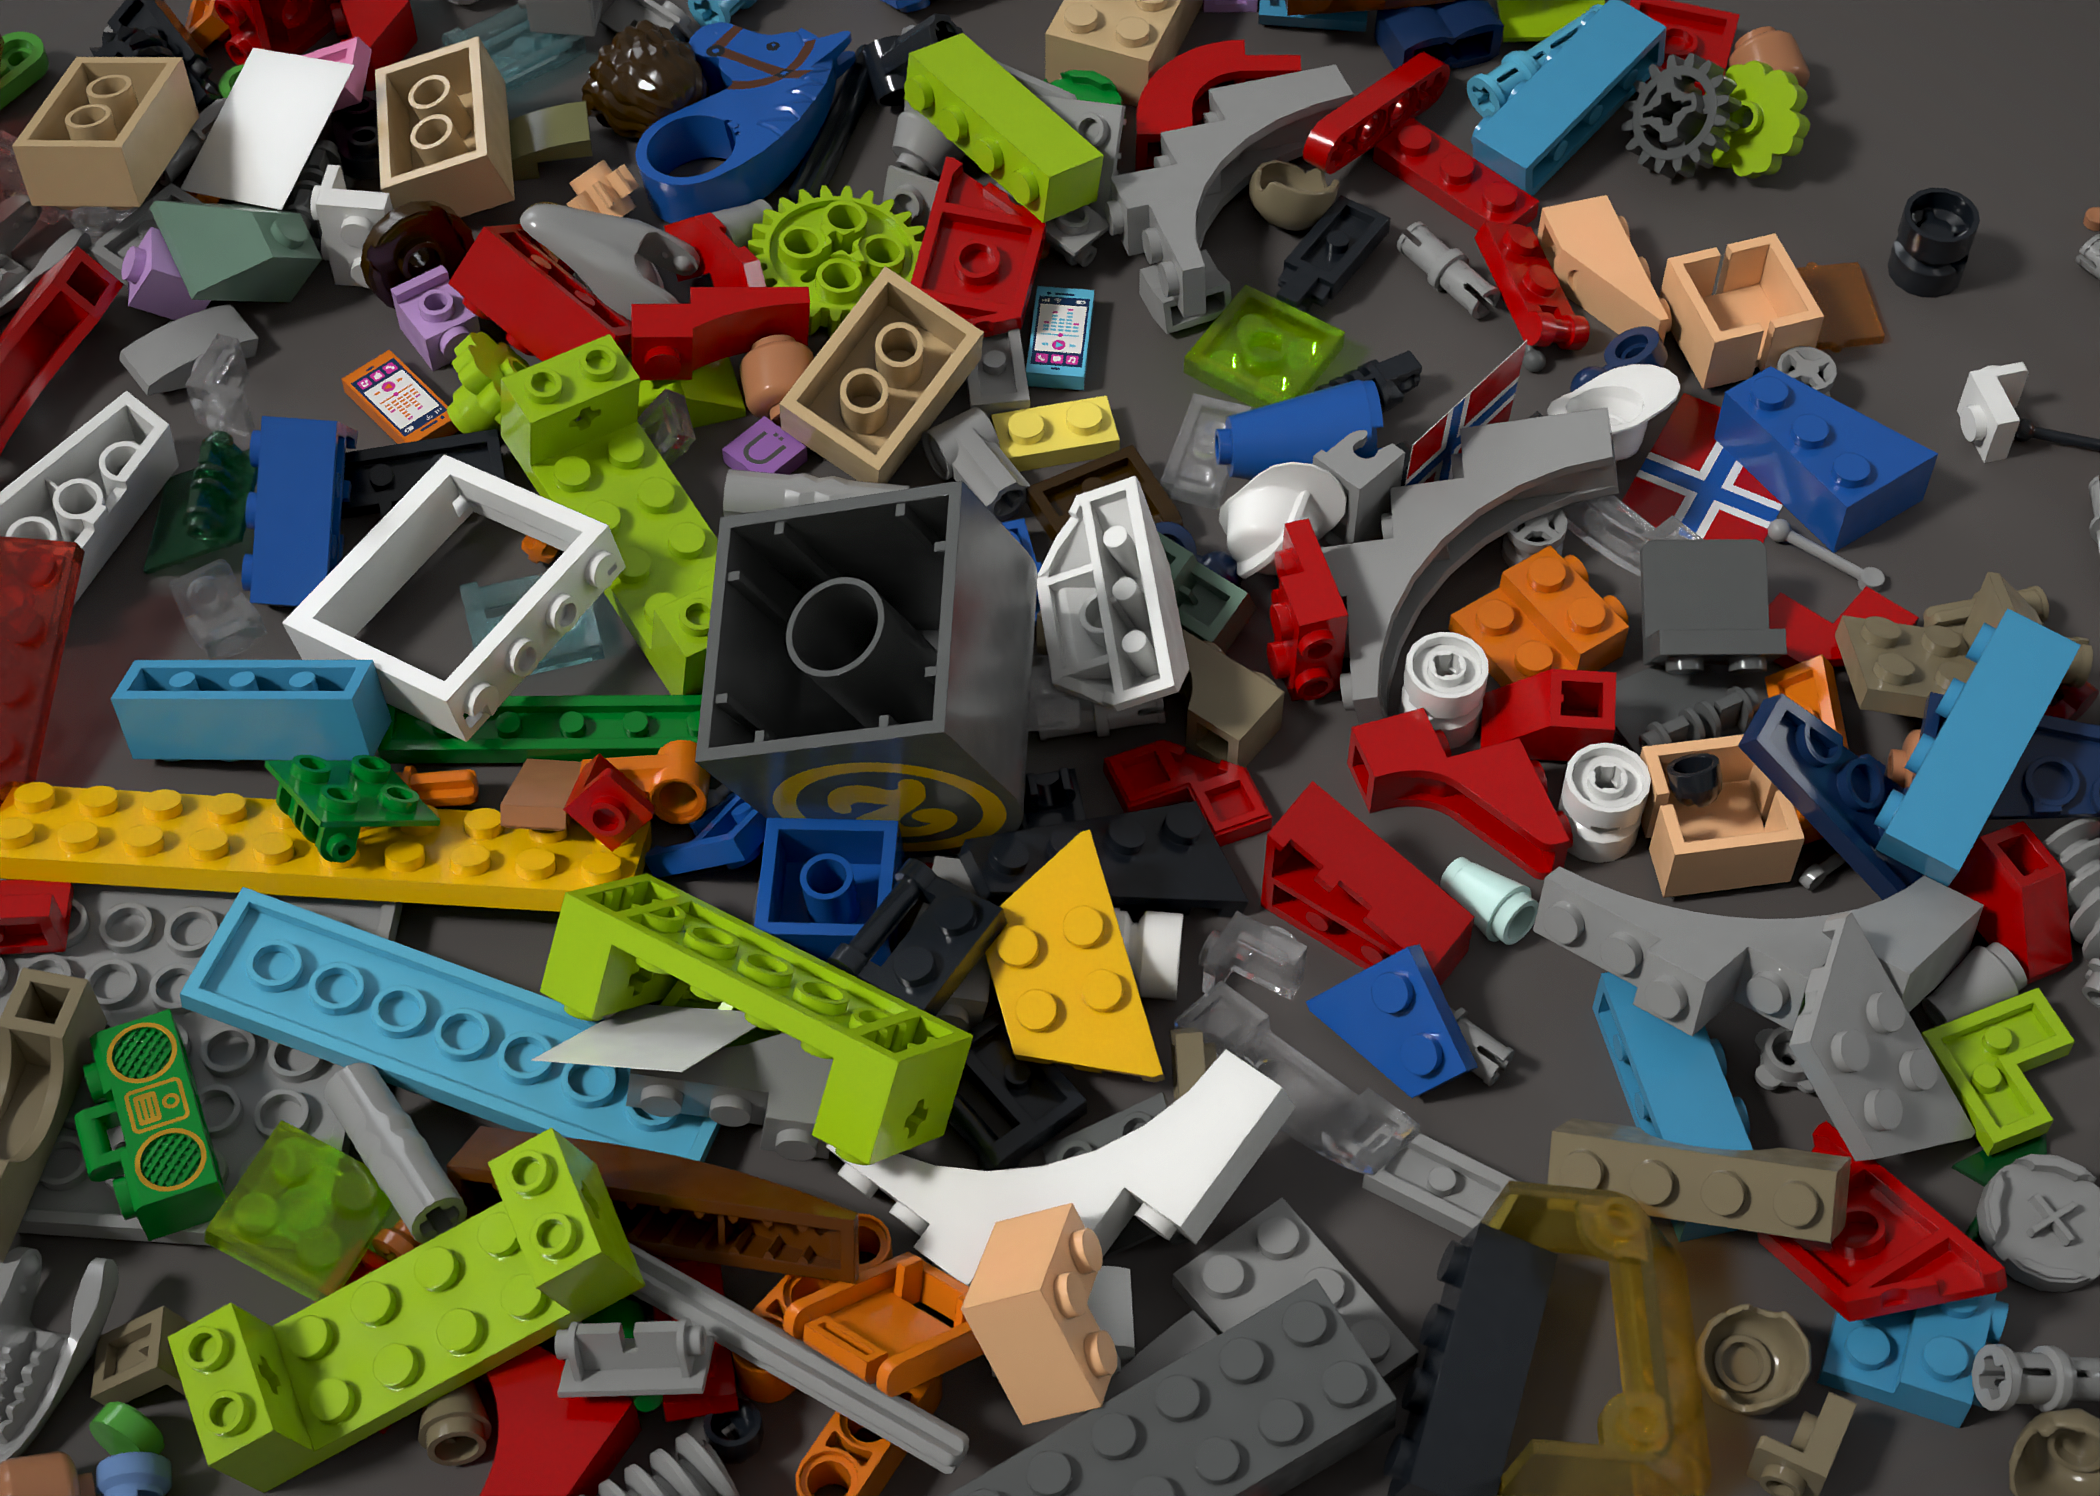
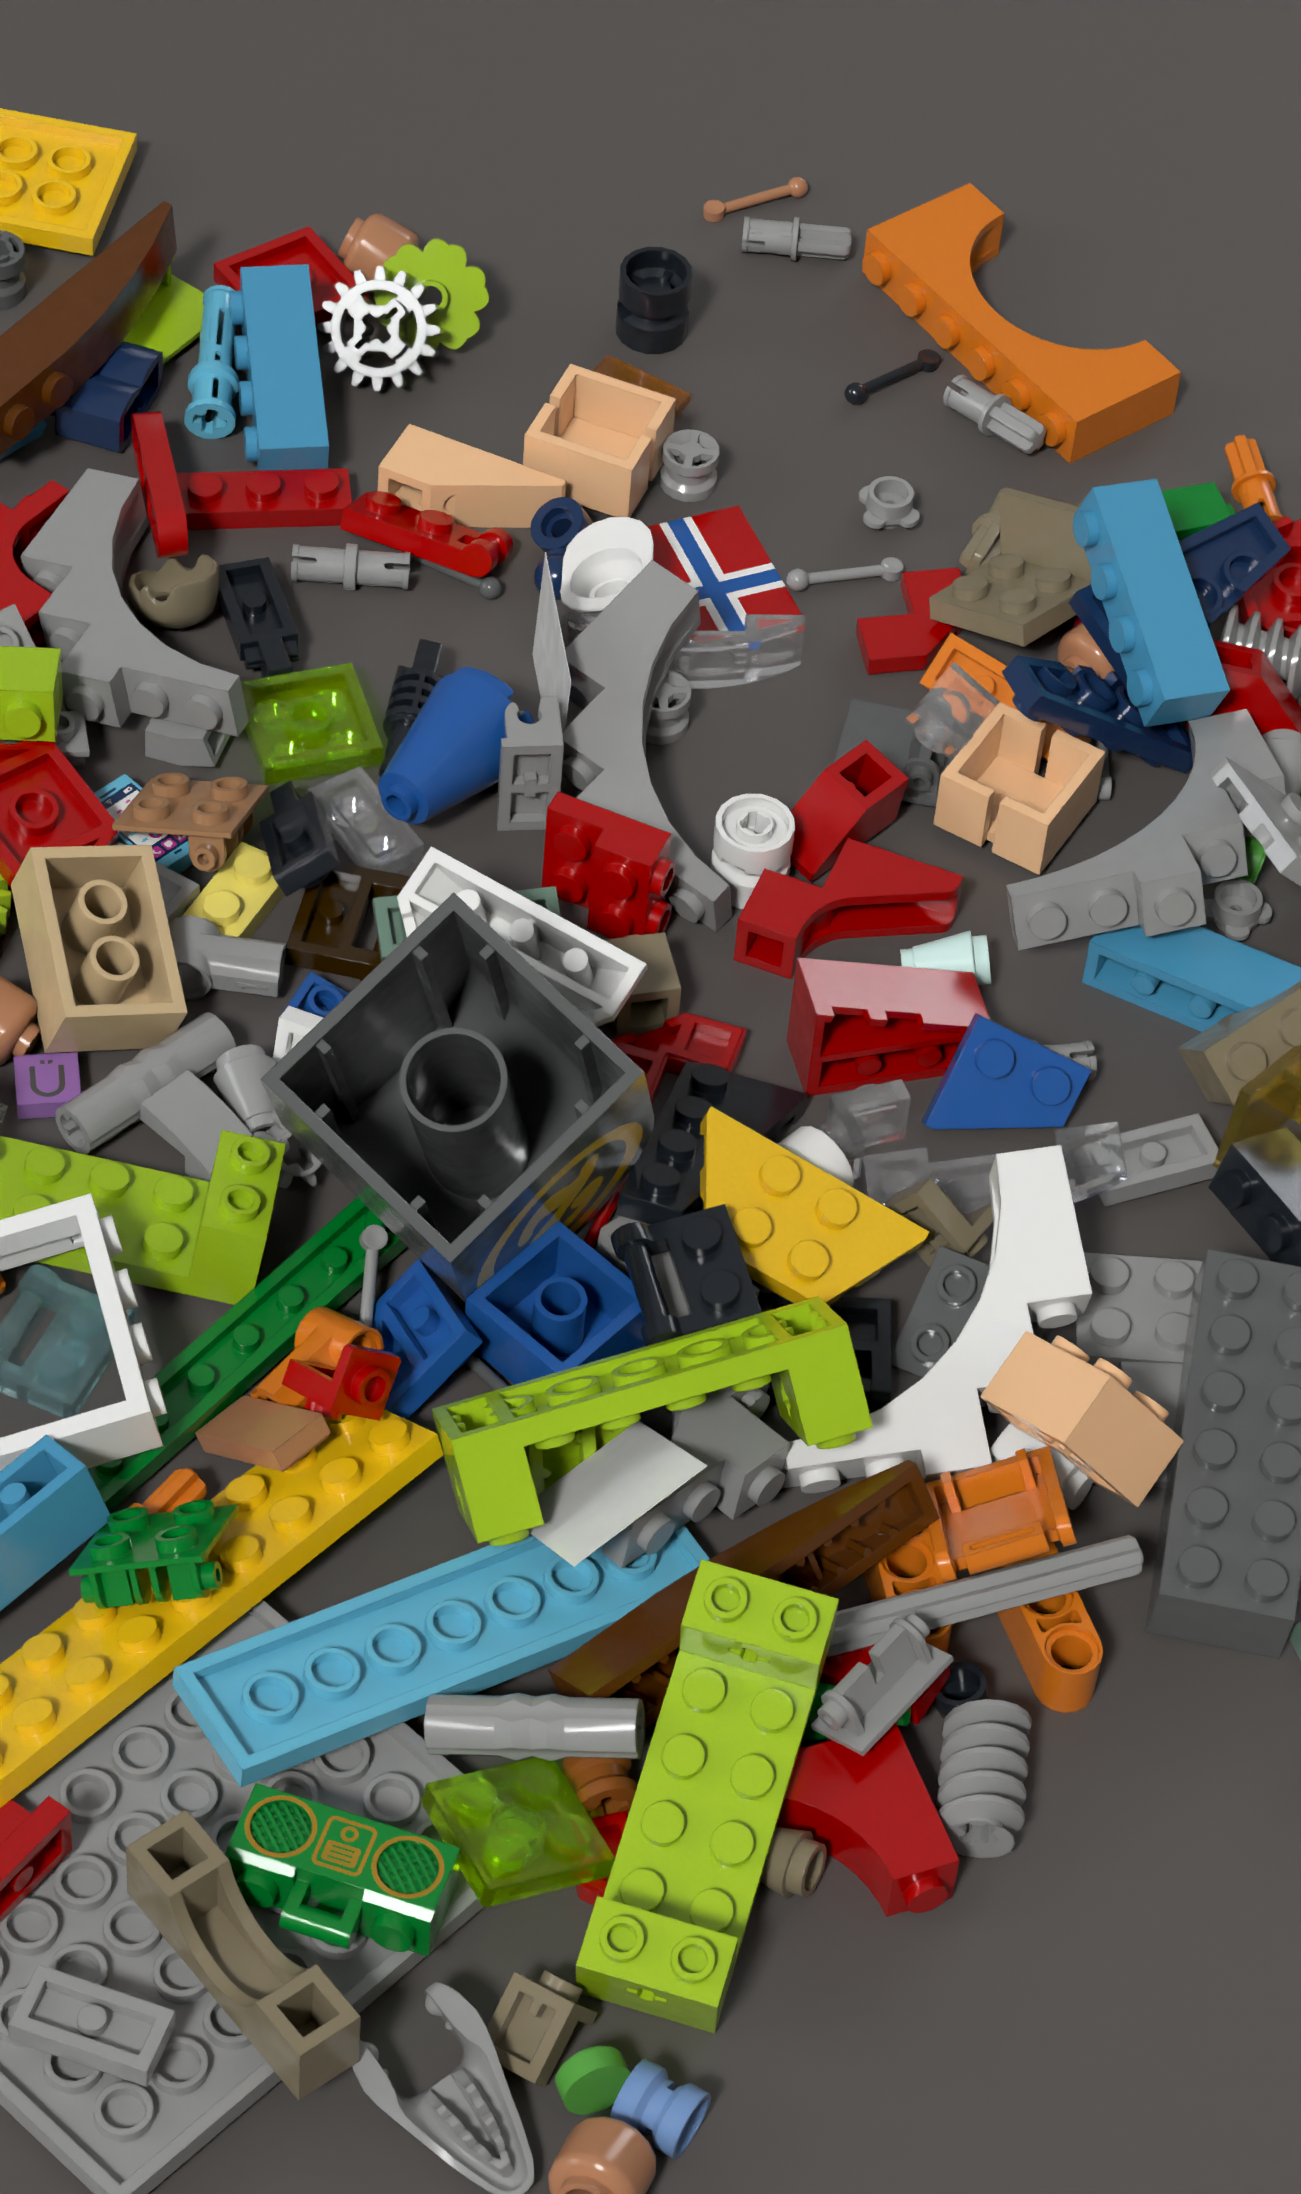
camera: 55 degrees left, 5 degrees down
(1086, 351) = (206, 811): none -> medium nougat hinge
(1127, 419) = (298, 840): none -> black hinge
(1277, 496) = (505, 822): white piece -> none
(1544, 620) = (739, 752): orange plate -> none
(1604, 800) = (944, 829): white wheel -> none
(1695, 779) = (997, 766): black hinge -> none
(1707, 606) = (846, 660): dark grey bracket -> none
(1714, 704) = (951, 712): none -> clear bracket
(1822, 457) = (768, 506): blue wedge -> none
(1931, 529) = (889, 503): none -> light grey plate
(1989, 410) = (829, 393): white bracket -> none

